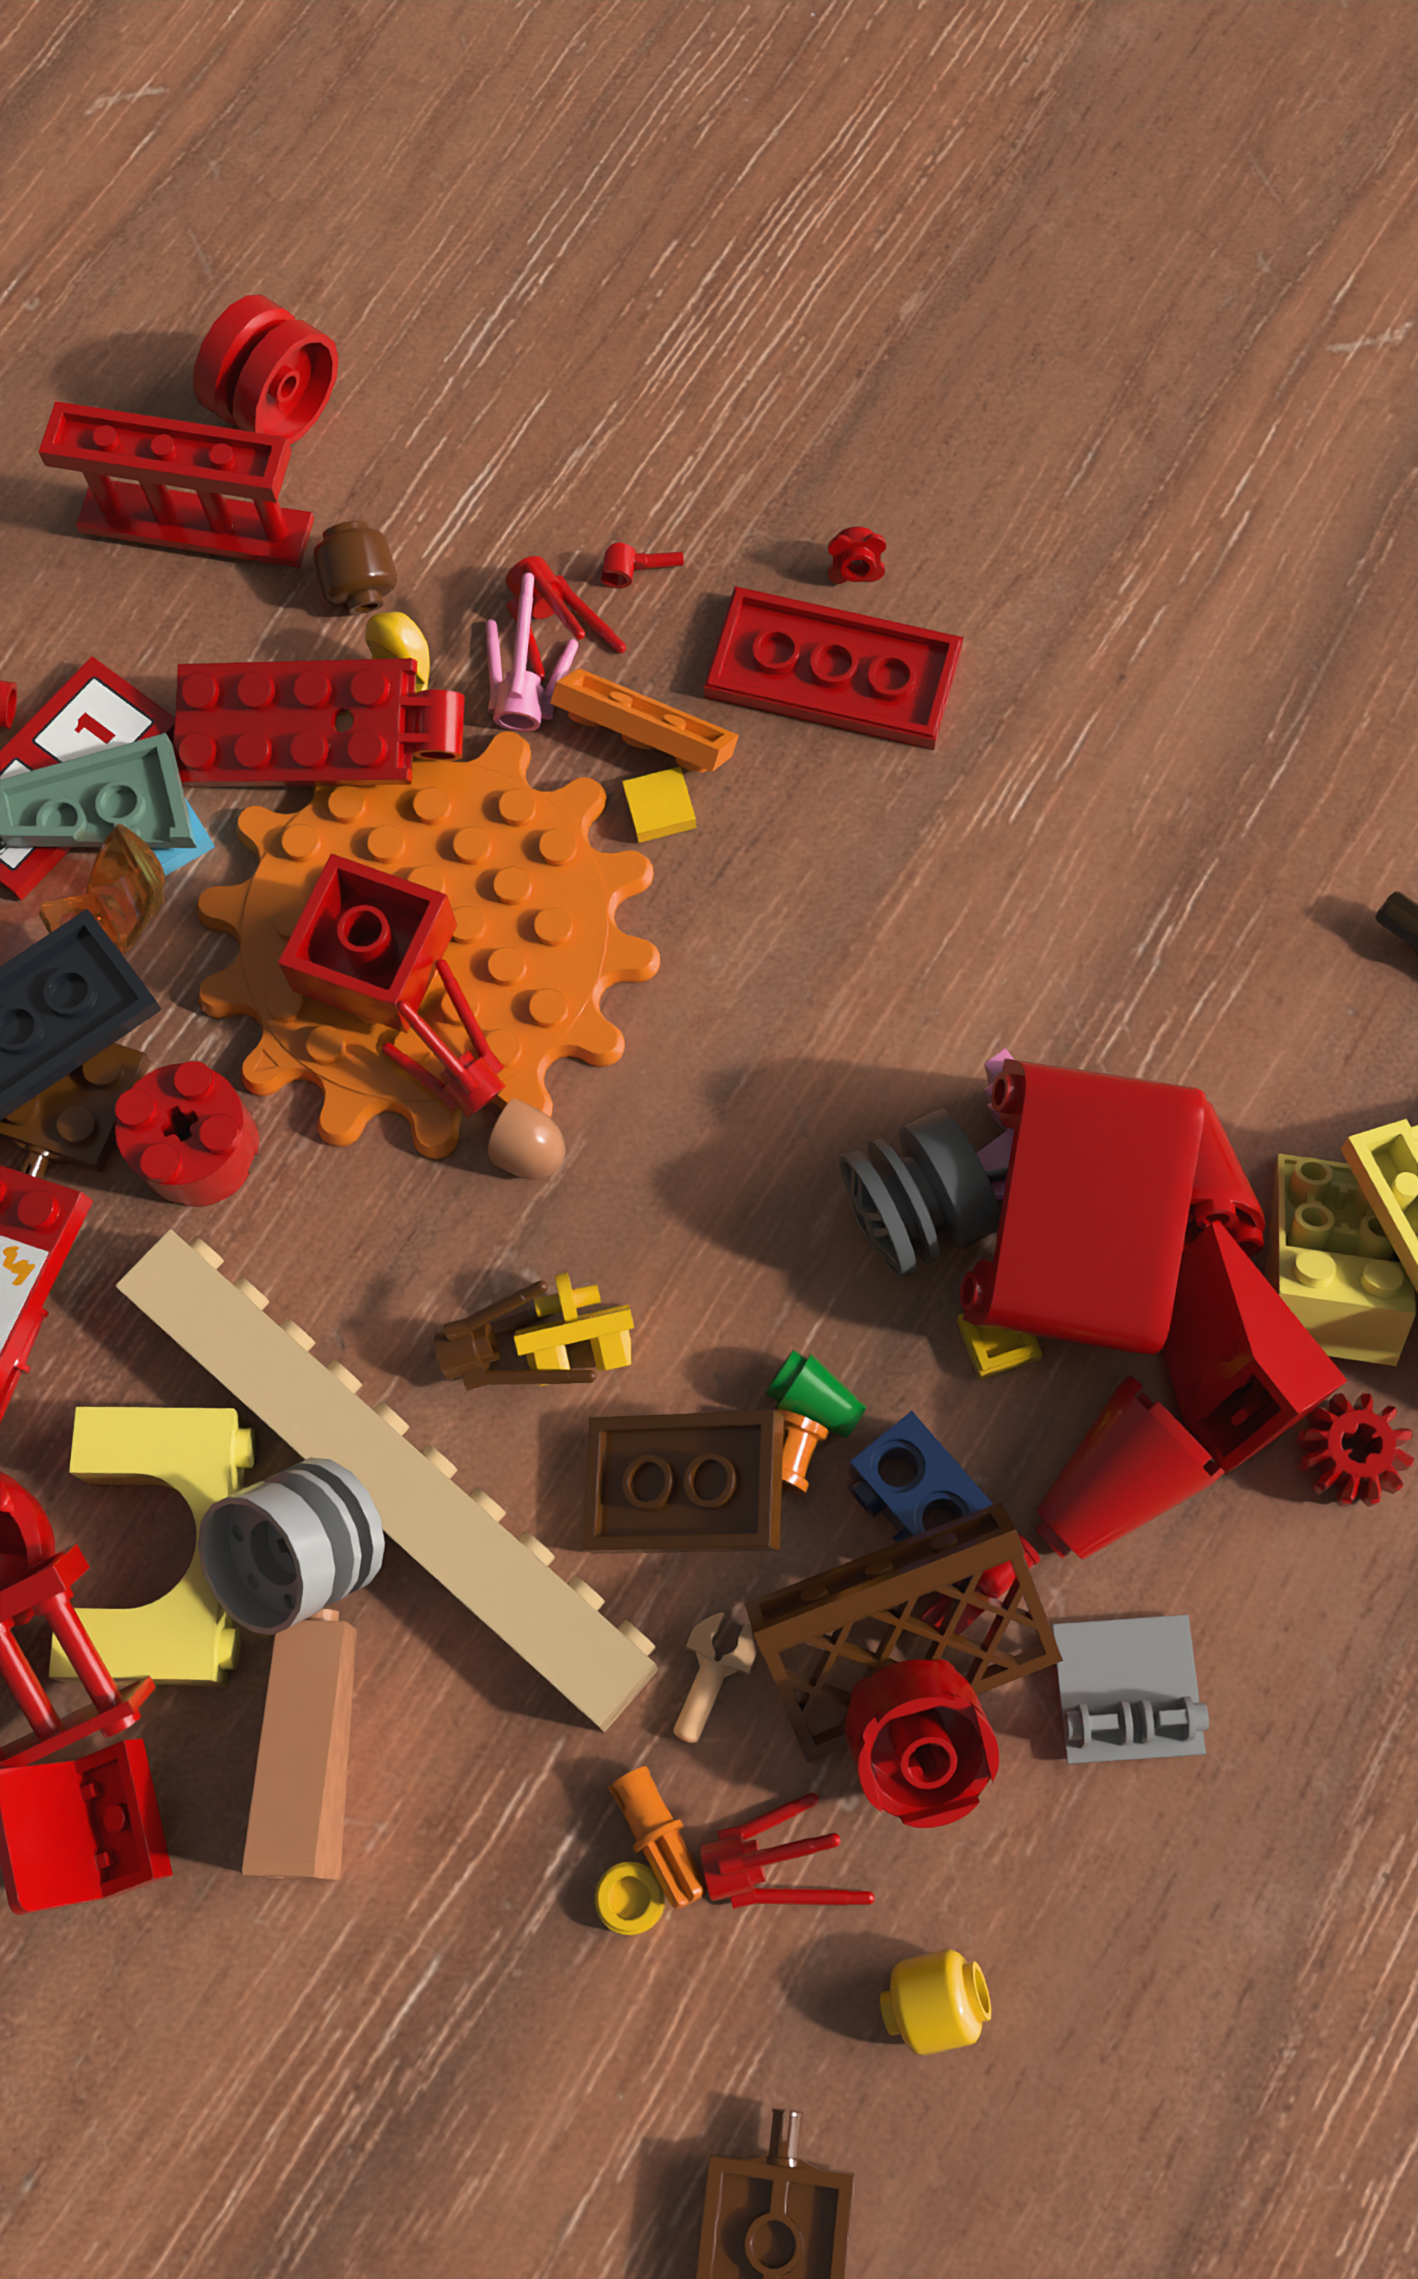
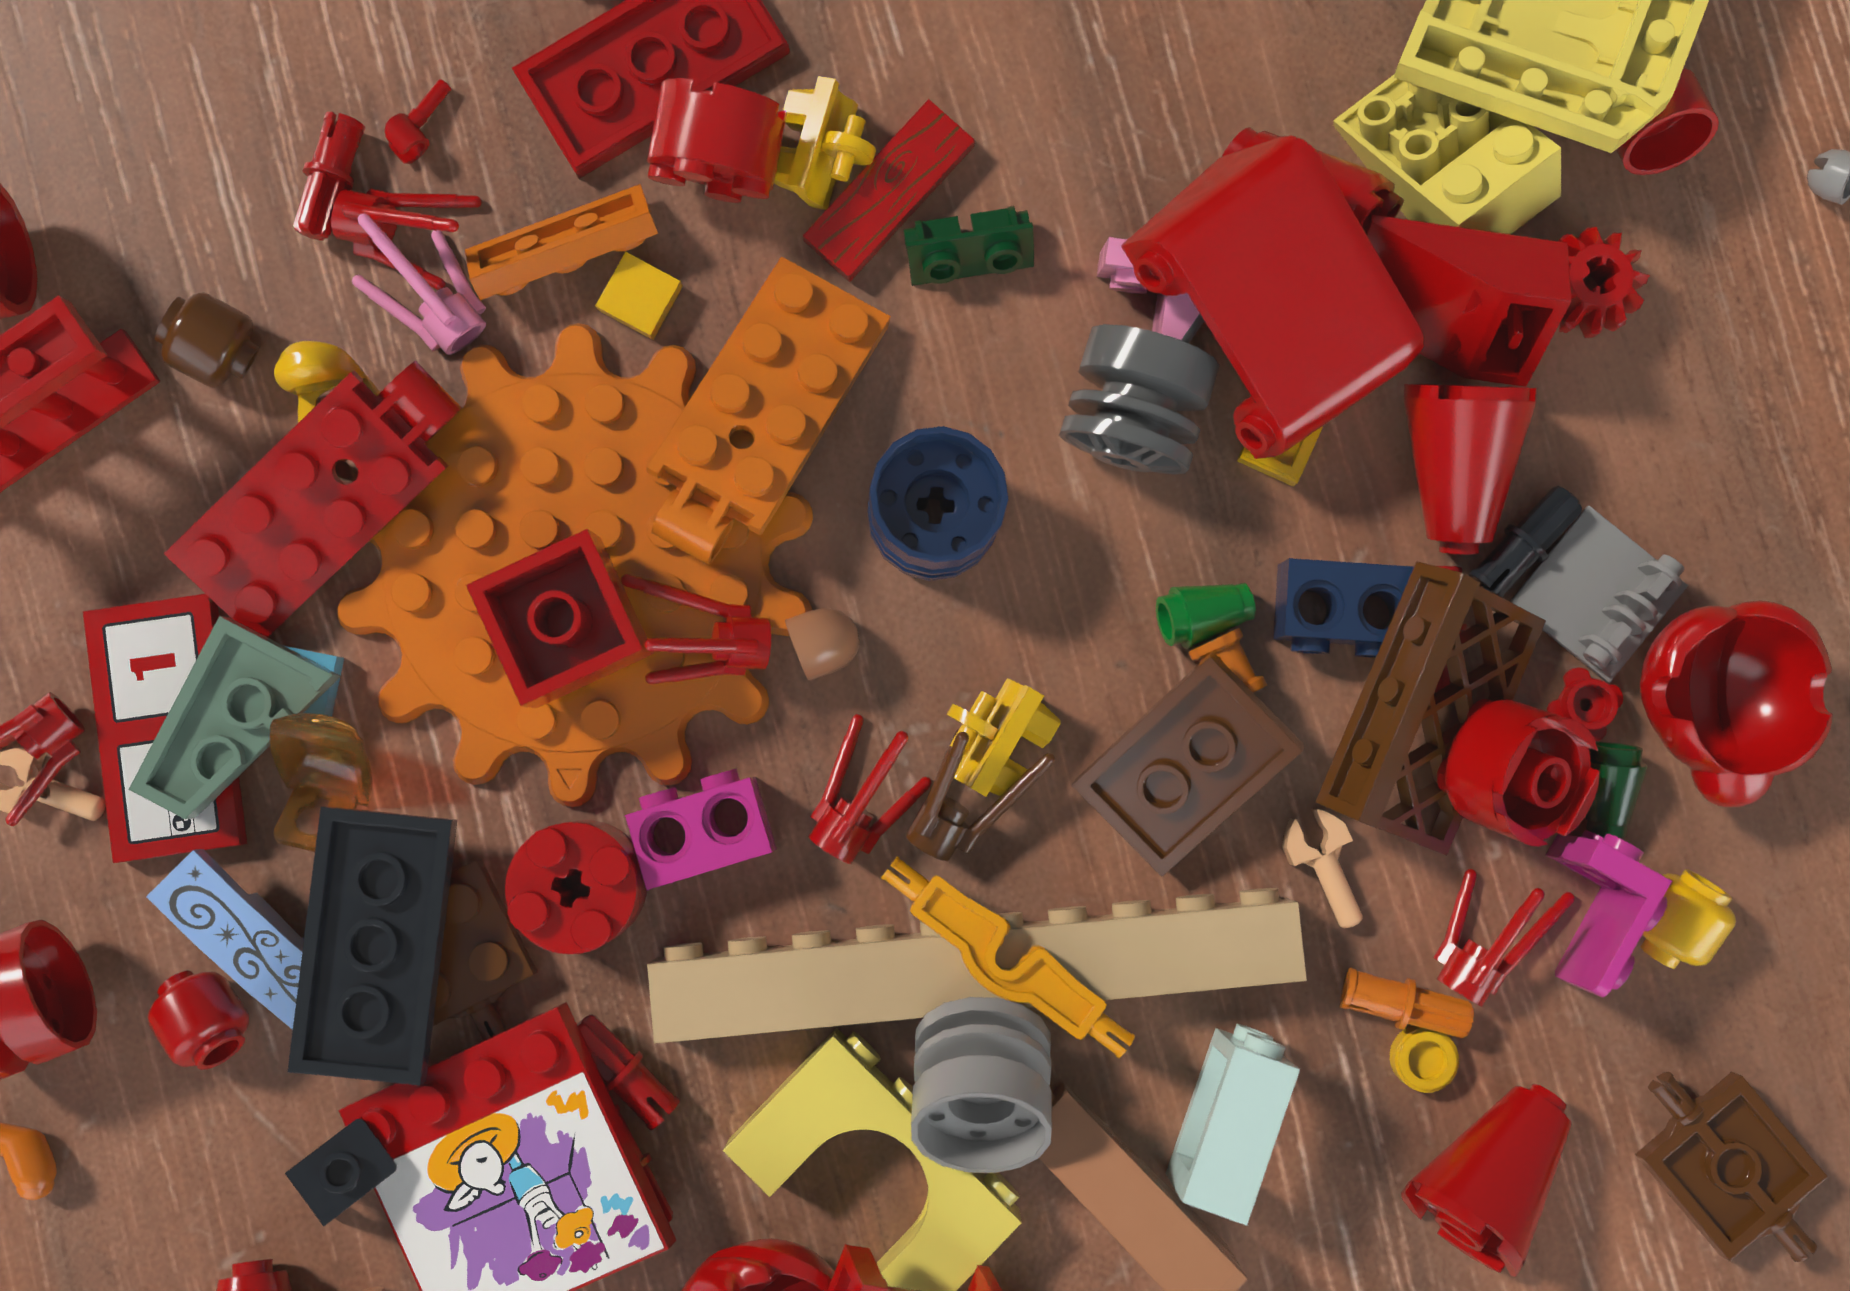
camera: 50 degrees left, 15 degrees up
(77, 1295) = (626, 1073): none -> red axle
(300, 1194) = (705, 844): none -> dark pink brick
(406, 1277) = (844, 827): none -> red plant
(413, 1512) = (1036, 976): none -> light orange piece
(433, 1769) = (1232, 1123): none -> light aqua window
(545, 540) = (328, 174): none -> red axle
(582, 2036) = (1495, 1178): none -> red cone
(683, 941) = (782, 384): none -> orange hinge
(701, 1089) = (942, 467): none -> dark blue wheel
(813, 747) = (716, 140): none -> red brick
(888, 822) = (827, 142): none -> yellow hips
(899, 975) = (997, 245): none -> dark green hinge
(903, 897) = (889, 190): none -> red tile
(916, 1881) = (1624, 908): none -> dark pink bracket
(985, 1841) = (1618, 787): none -> dark green cone
(1050, 1770) = (1603, 700): none -> red plate
(1111, 1591) = (1527, 541): none -> black axle
(1147, 1859) = (1738, 696): none -> red piece

